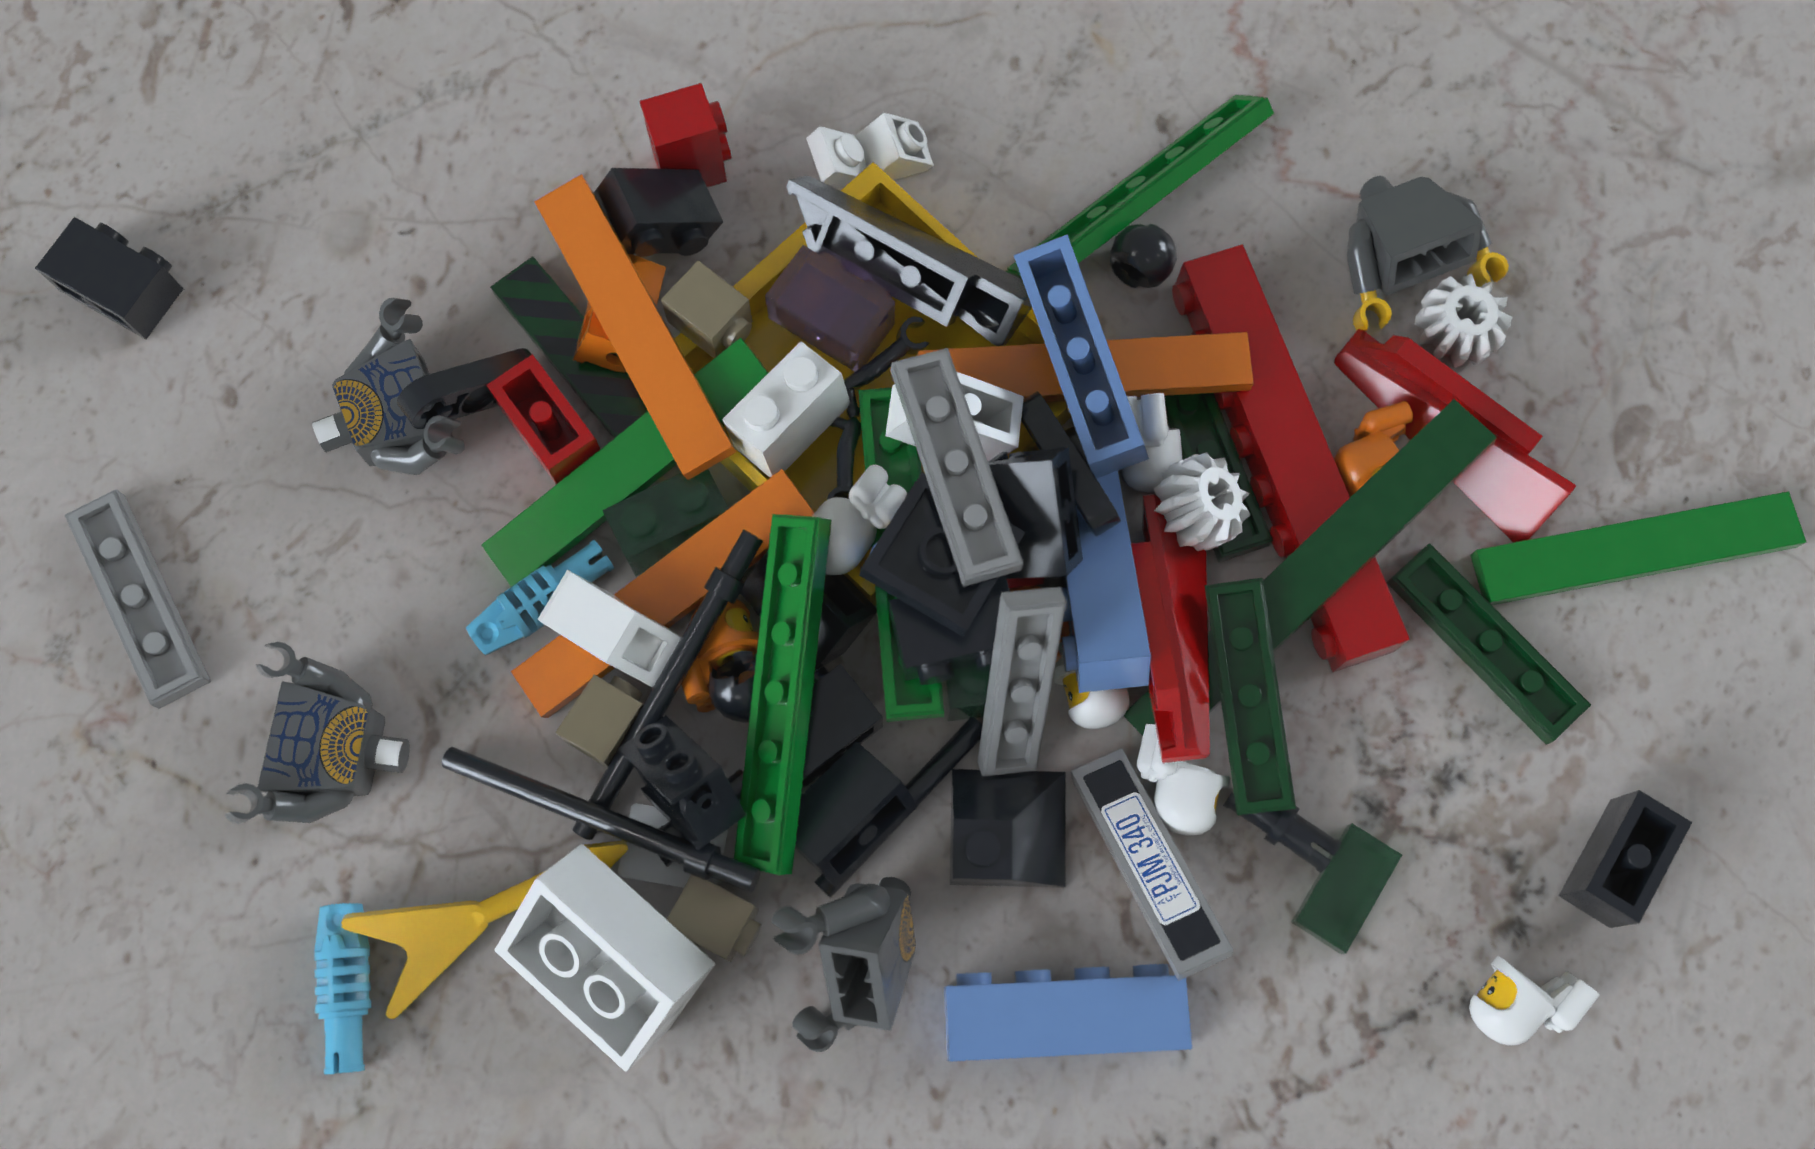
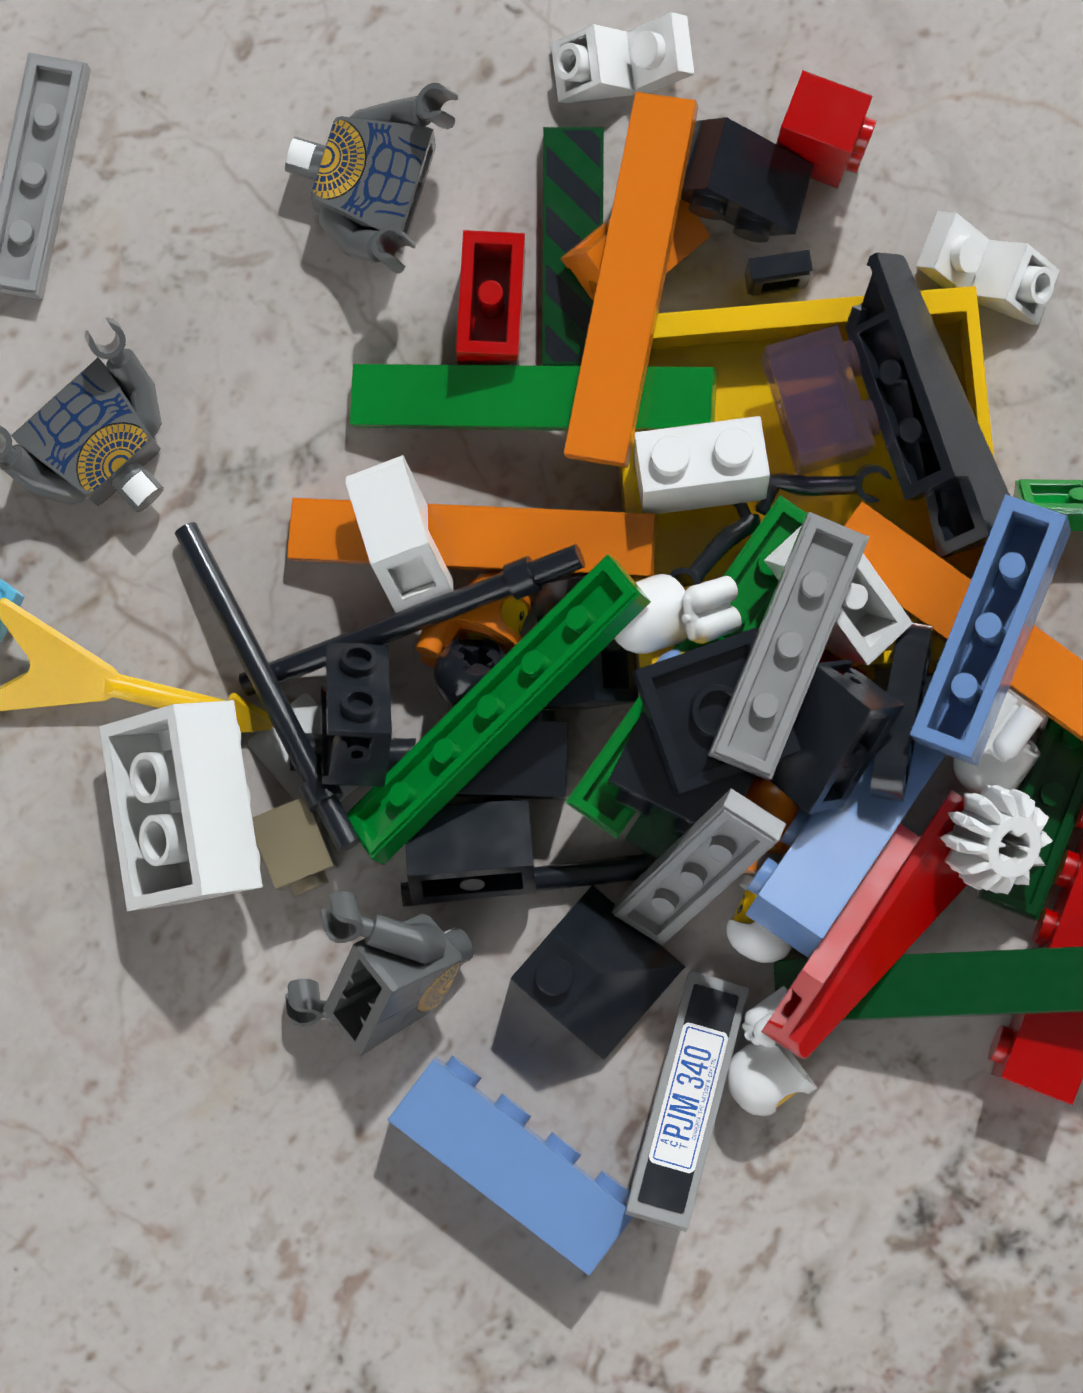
camera: 45 degrees right, 10 degrees up
(456, 390) = (442, 215): black beam -> none
(504, 214) = (618, 63): none -> white slope
(519, 607) = (349, 448): medium azure hinge -> none
(601, 718) = (335, 602): dark tan brick -> none
(664, 517) = (523, 471): clear green brick -> none
(707, 310) = (707, 317): dark tan brick -> none
(734, 255) = (778, 272): none -> black tile
(1250, 697) = (889, 1037): dark green tile -> none
(1292, 832) = (828, 1162): black pin -> none
(1347, 889) = (837, 1259): clear green tile -> none

